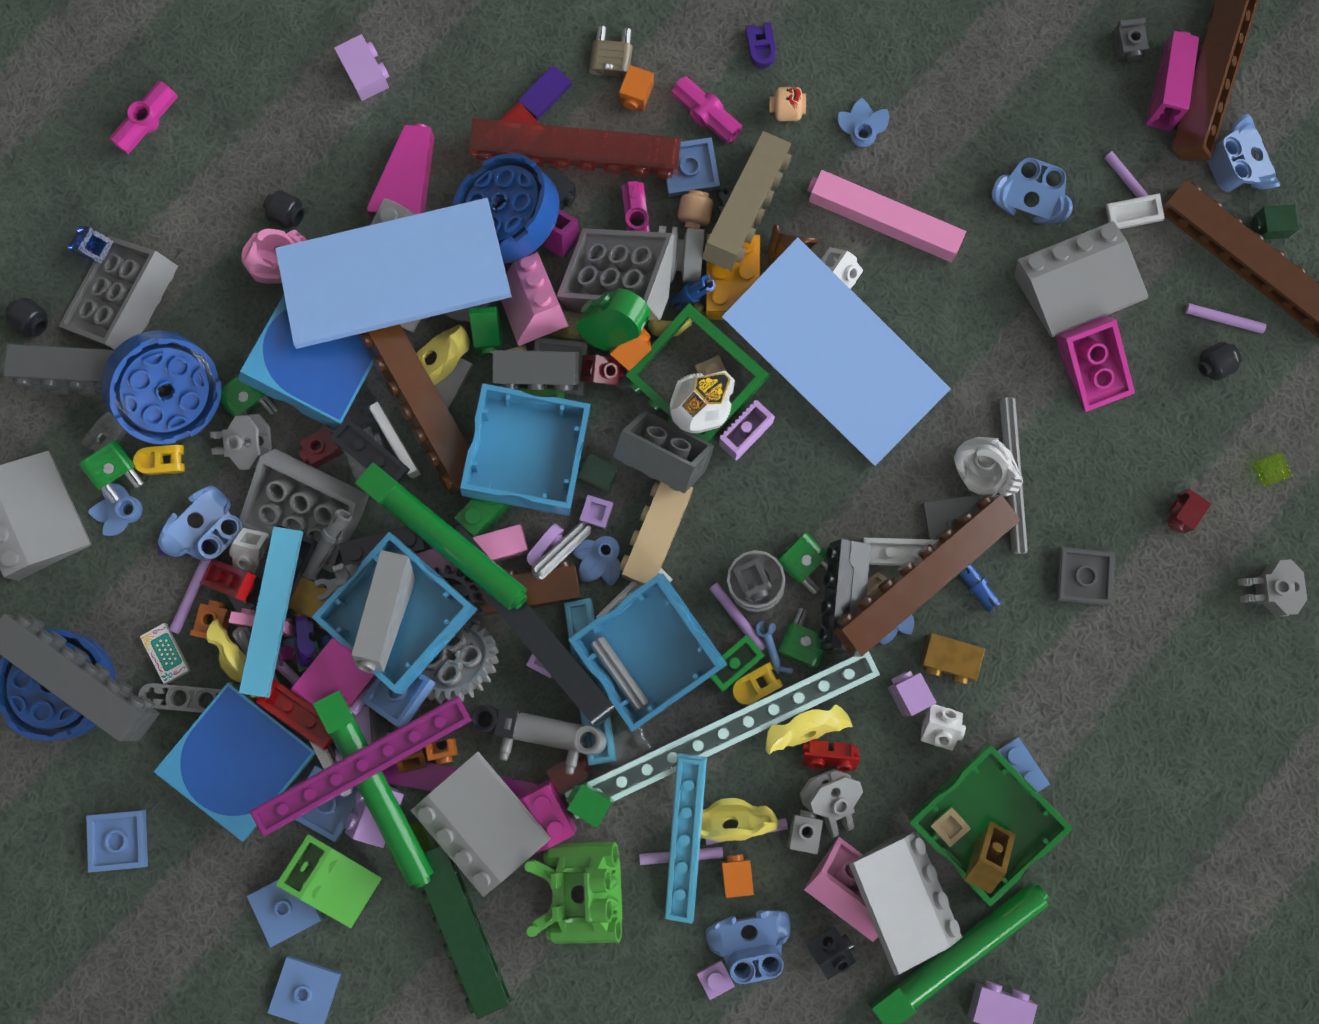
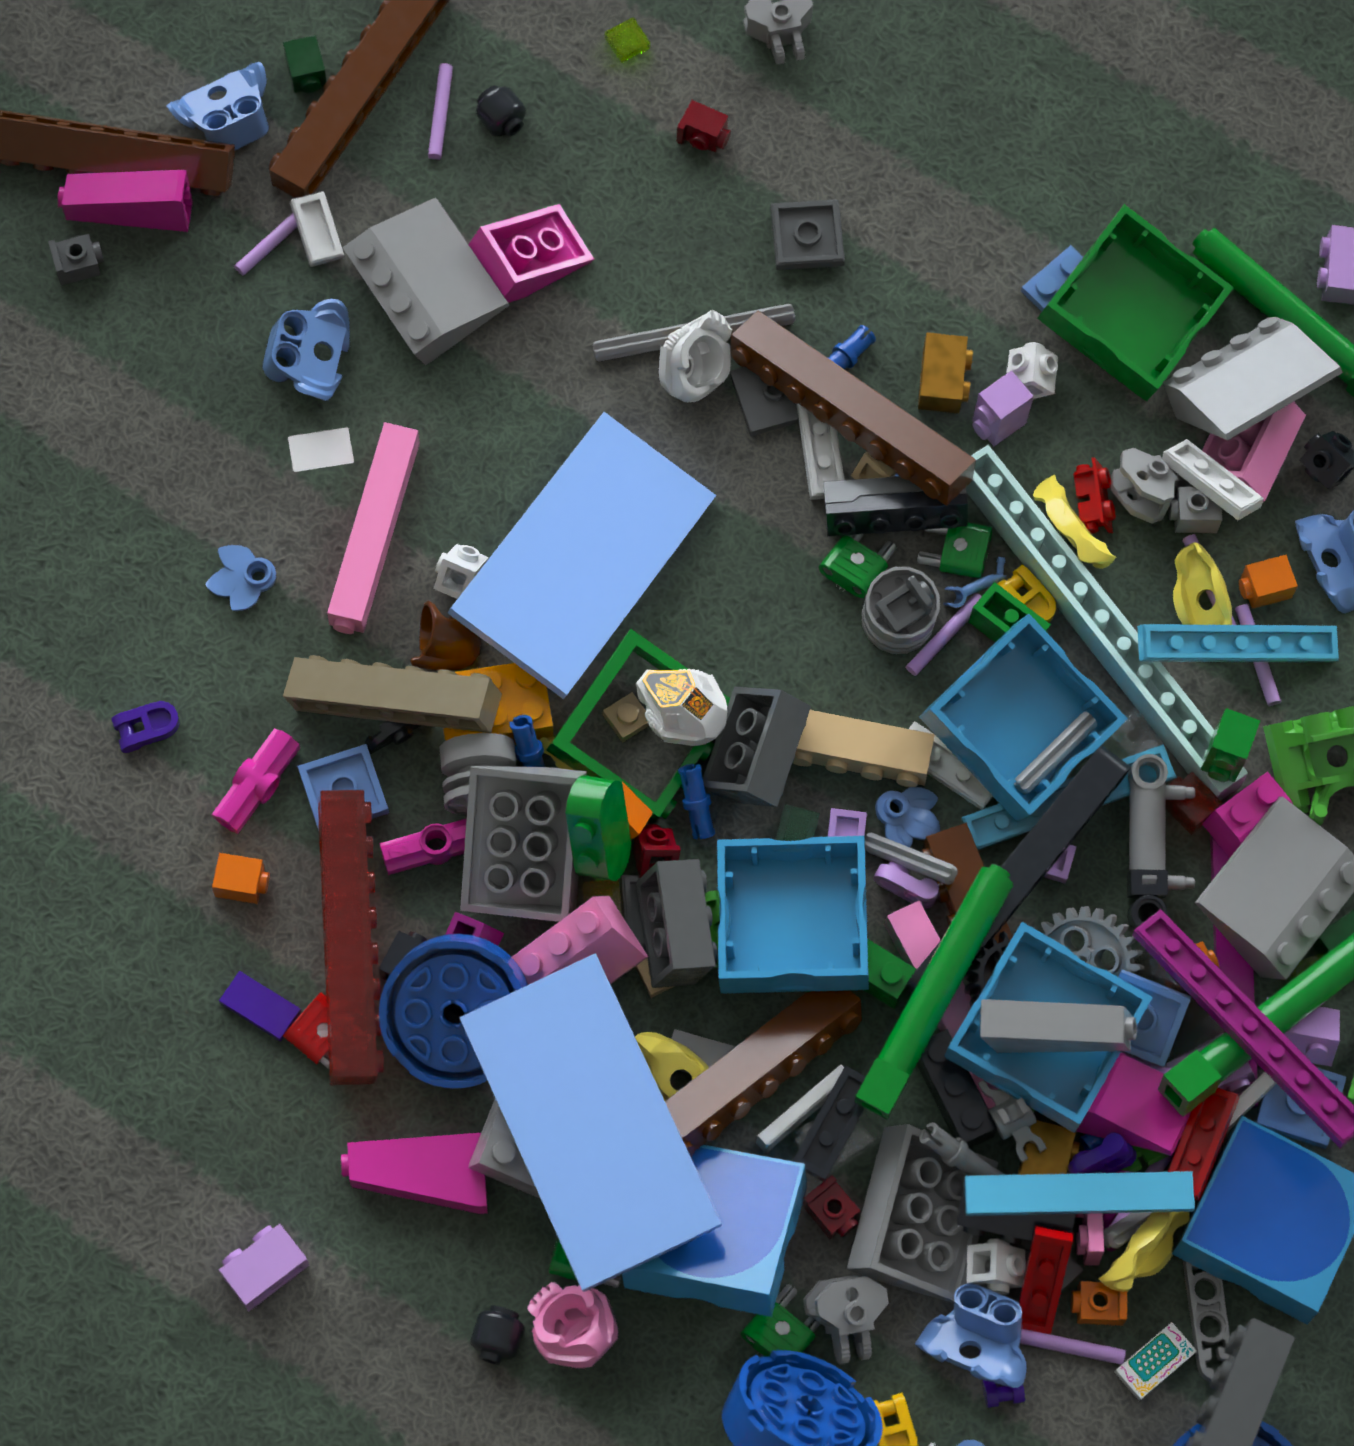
camera: 105 degrees left, 10 degrees down
(486, 330) = (638, 1007): green slope -> none
(610, 57) = (193, 924): dark tan piece -> none
(633, 405) = (696, 801): none -> blue pin
(695, 209) = (406, 770): light nougat head -> none
(746, 430) = (703, 652): lavender brick -> none
(788, 104) = (233, 673): light nougat head -> none
(823, 848) = (1212, 479): none -> white tile
(950, 826) = (1149, 346): tan plate -> none
(956, 193) = (320, 449): none -> white sticker
(990, 857) = (1178, 291): pearl gold brick -> none

